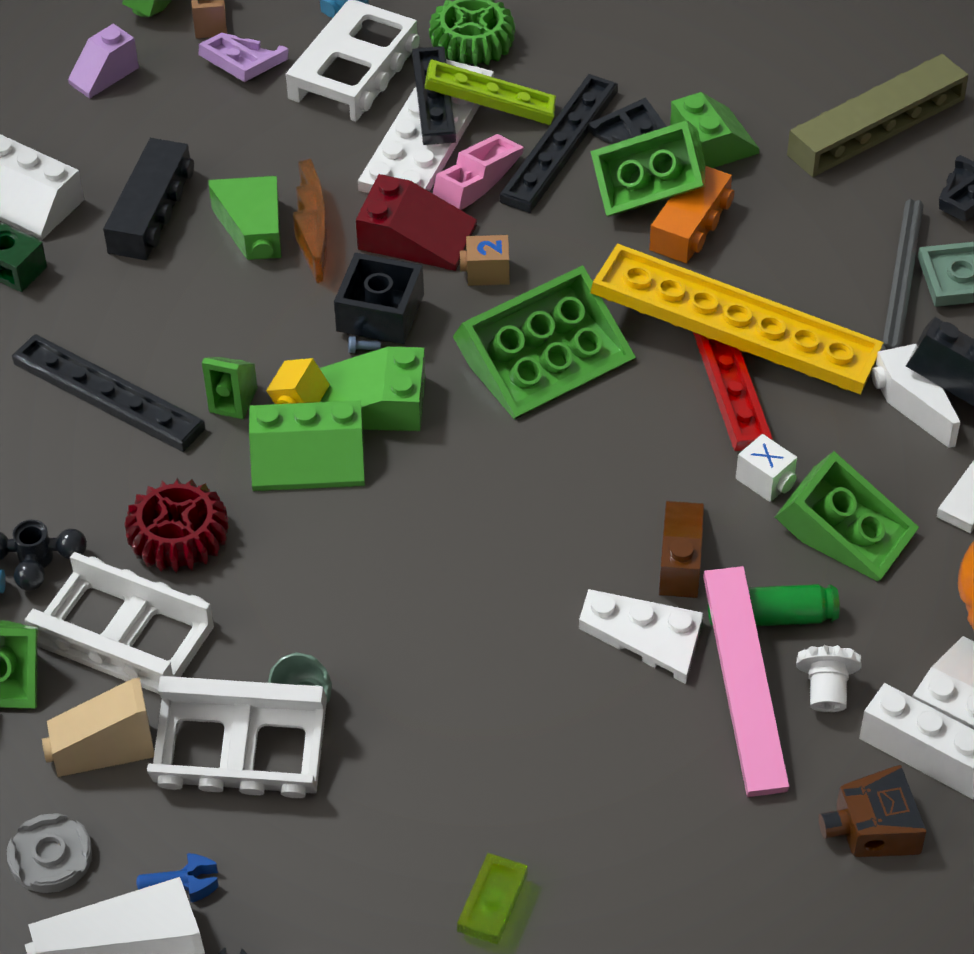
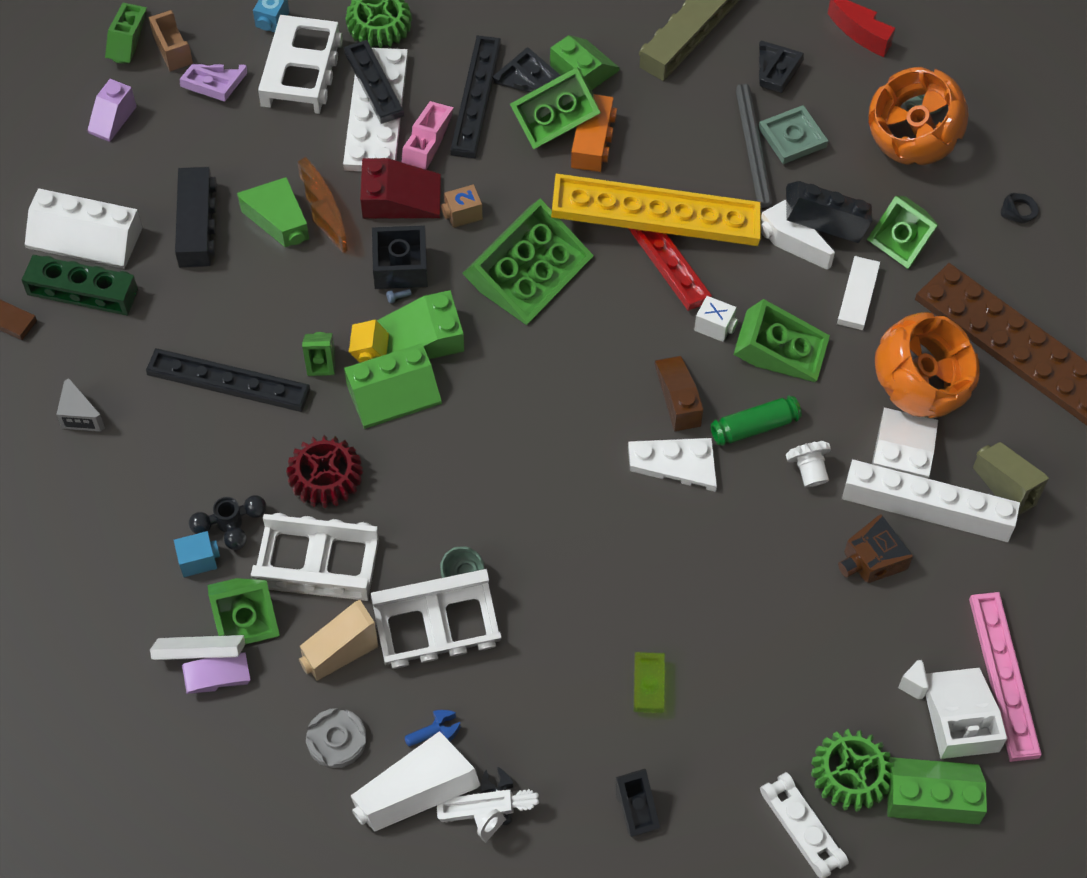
camera: 20 degrees left, 10 degrees up
(490, 92) = (414, 69): lime tile -> none
(745, 682) = (759, 481): bright pink tile -> none

